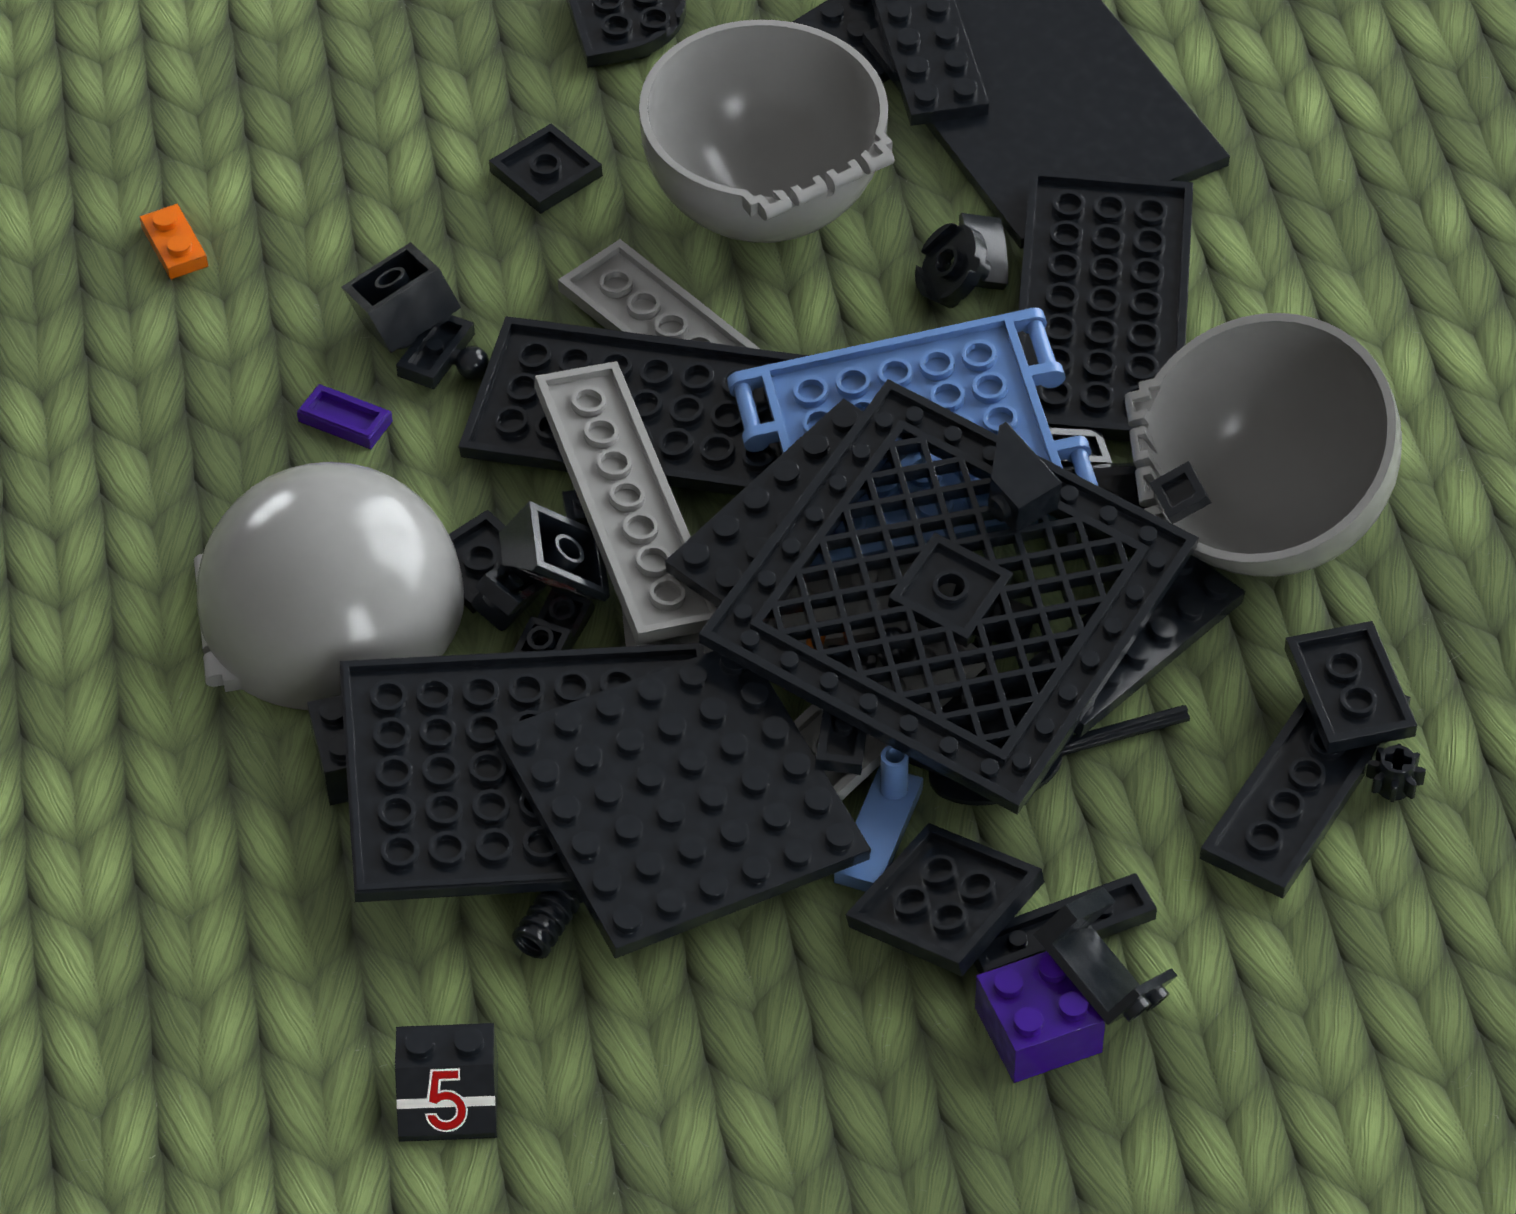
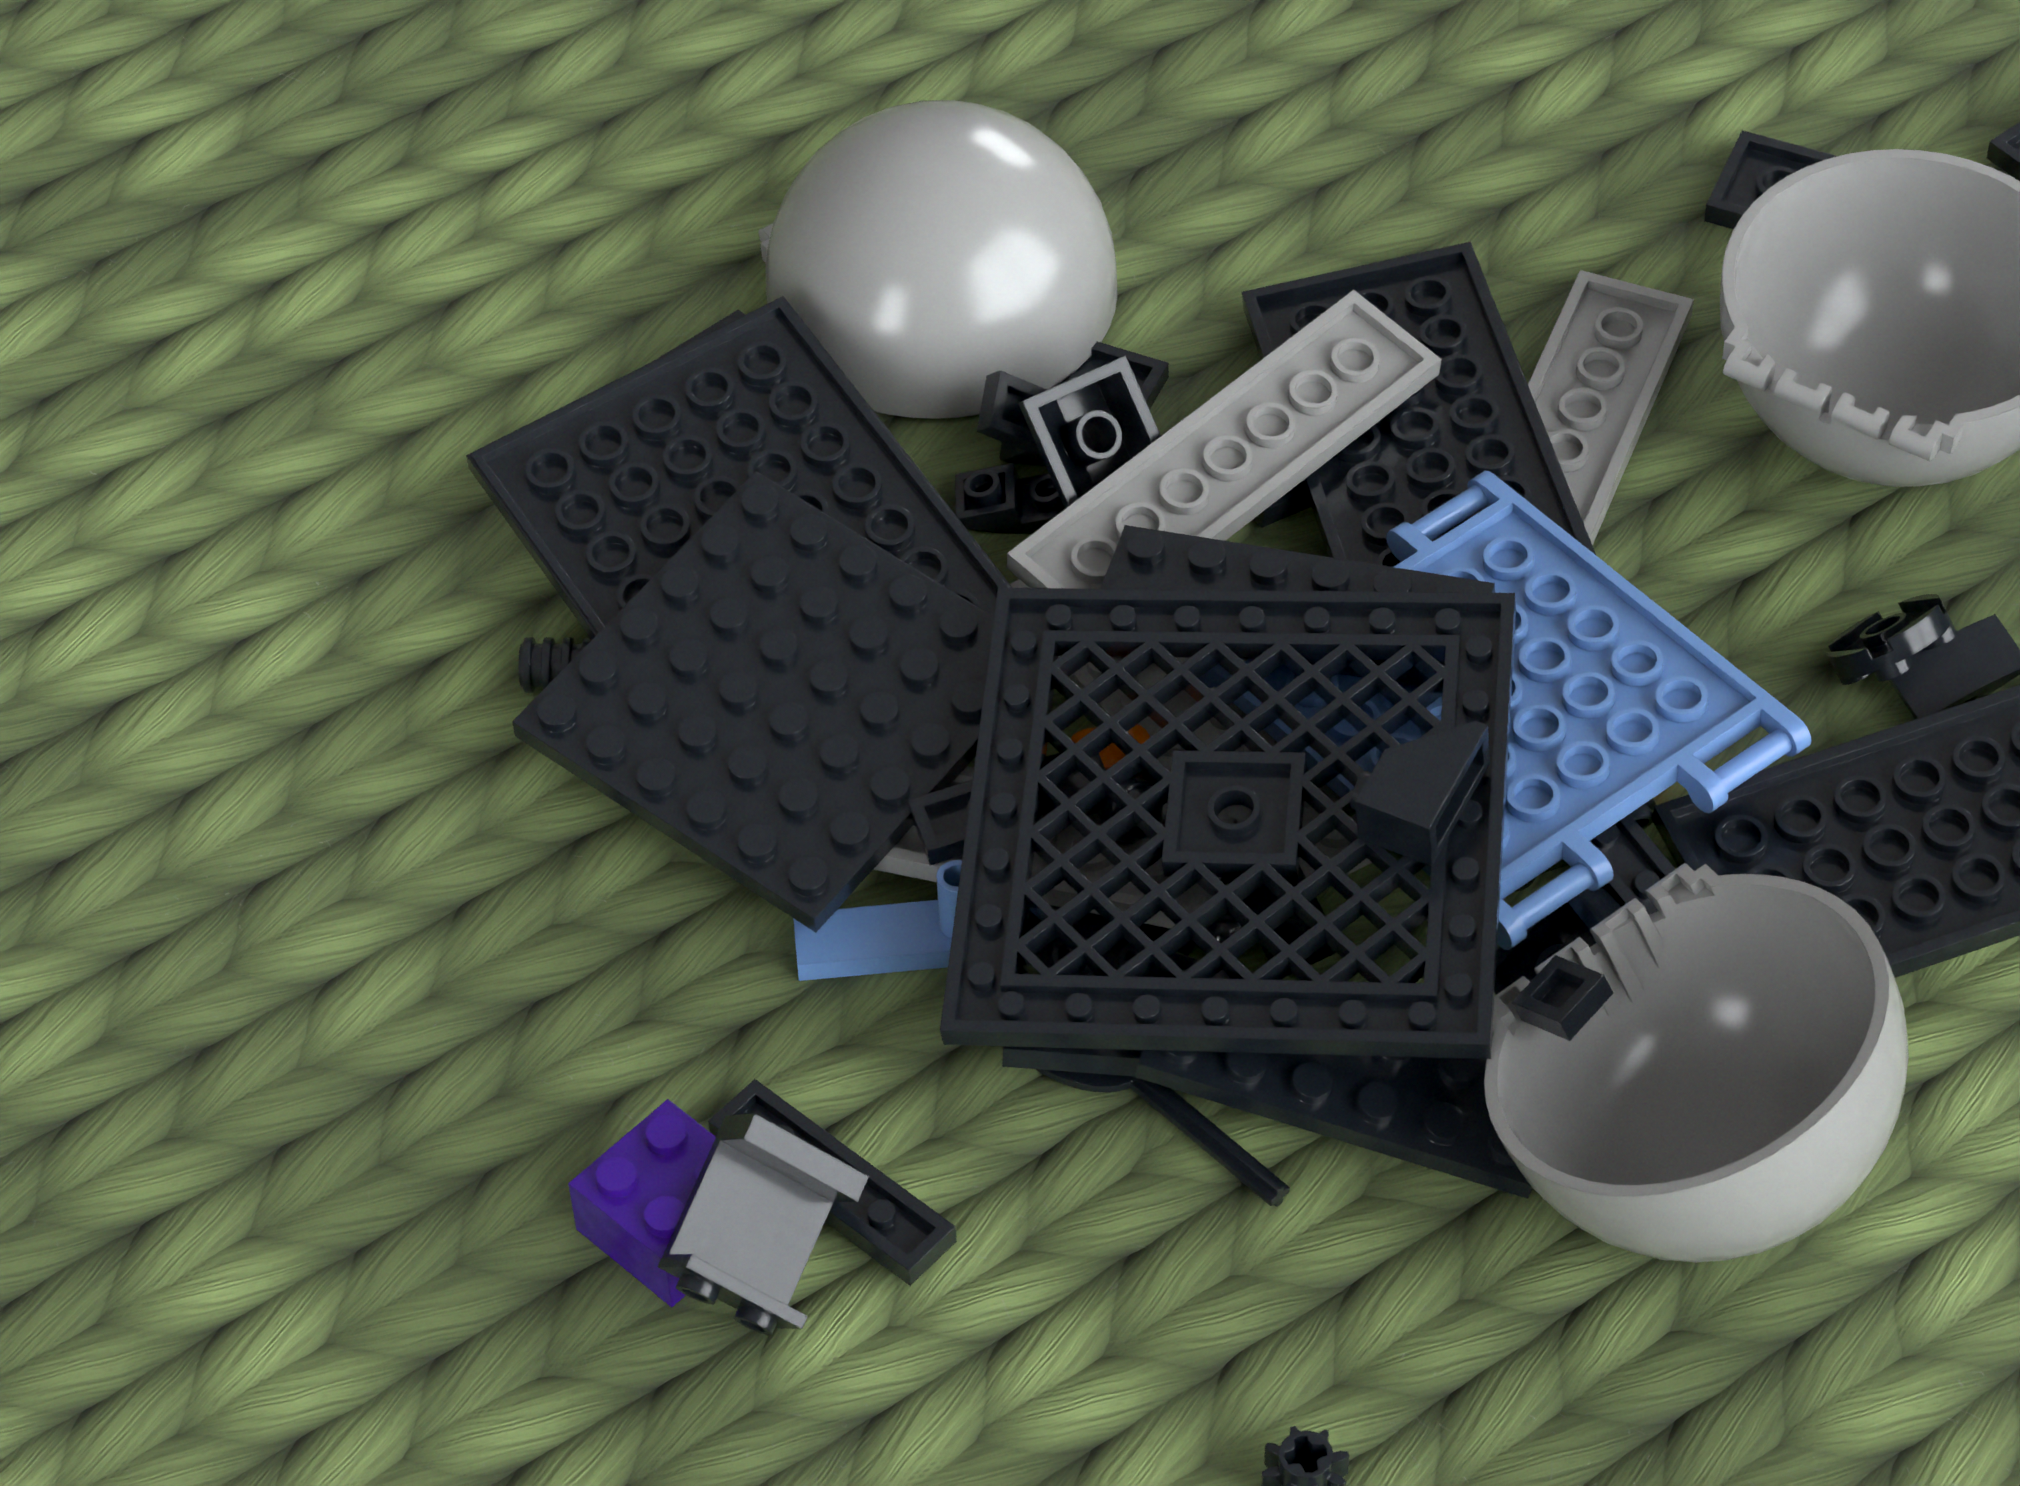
camera: 65 degrees right, 0 degrees up
(344, 416) = (1236, 181): dark purple tile -> none
(401, 298) = (1420, 133): black brick -> none
(438, 350) = (1390, 215): black plate -> none
(446, 1082) = (289, 669): black slope -> none
(945, 898) = (797, 1035): black plate -> none
(1286, 806) = (1240, 1370): black plate -> none
(1350, 687) = (1403, 1353): black plate -> none

